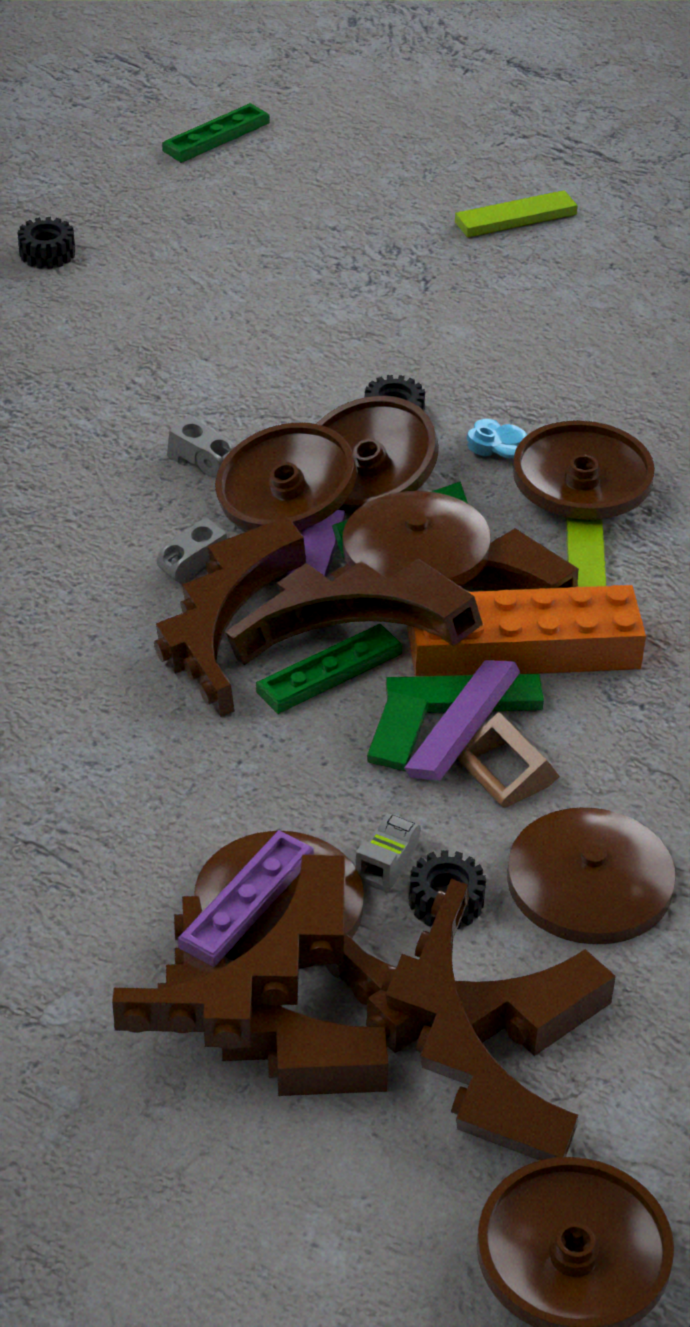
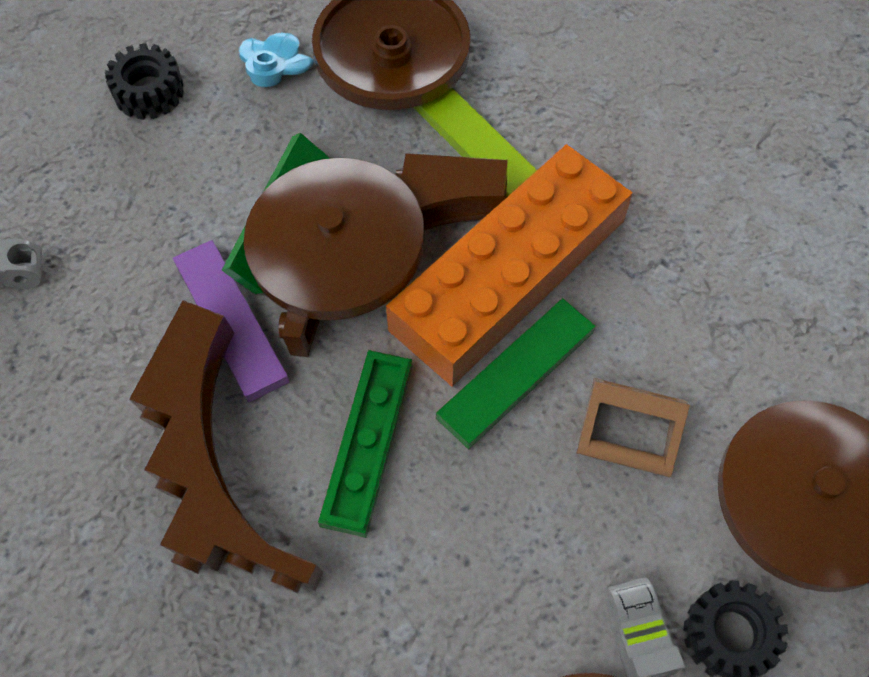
camera: 40 degrees left, 20 degrees up
(189, 550) = (104, 406): light grey leg -> none
(286, 472) = (124, 246): reddish brown dish -> none
(311, 601) = (411, 314): reddish brown arch -> none
(390, 446) = (181, 159): reddish brown dish -> none
(397, 731) = (509, 471): green tile -> none
(462, 720) = (560, 414): medium lavender tile -> none

